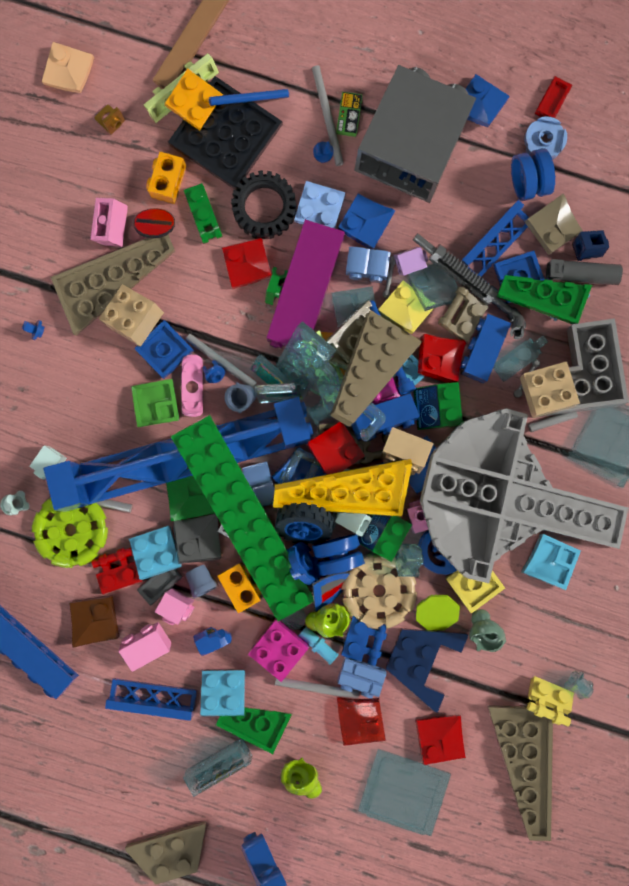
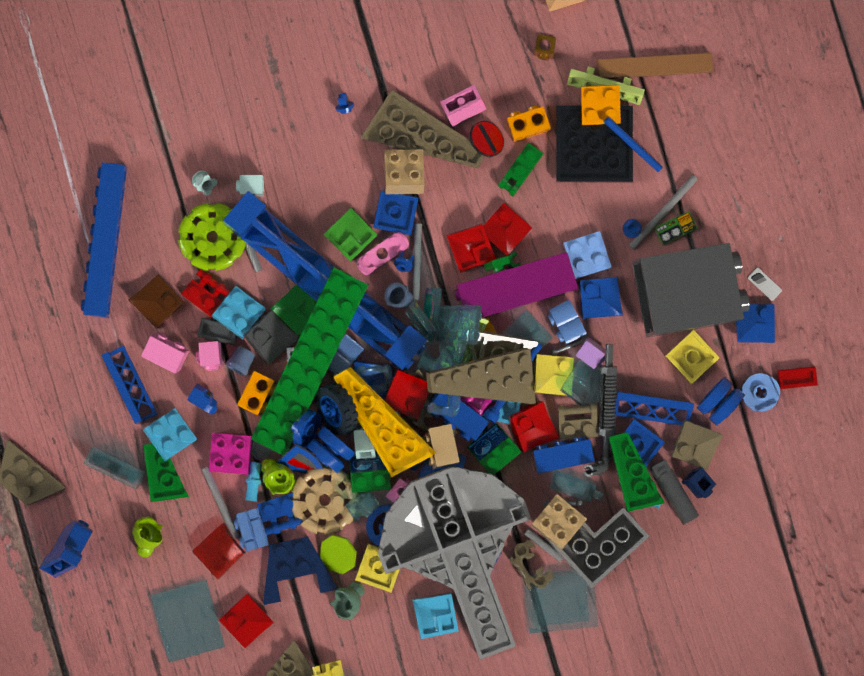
camera: 55 degrees right, 0 degrees up
(241, 303) = (471, 247): none -> red plate
(264, 181) = (558, 189): black tyre -> none
(451, 72) = (765, 284): none -> white sticker
(473, 176) = (692, 357): none -> light yellow plate
(584, 446) = (540, 580): none -> dark tan helmet

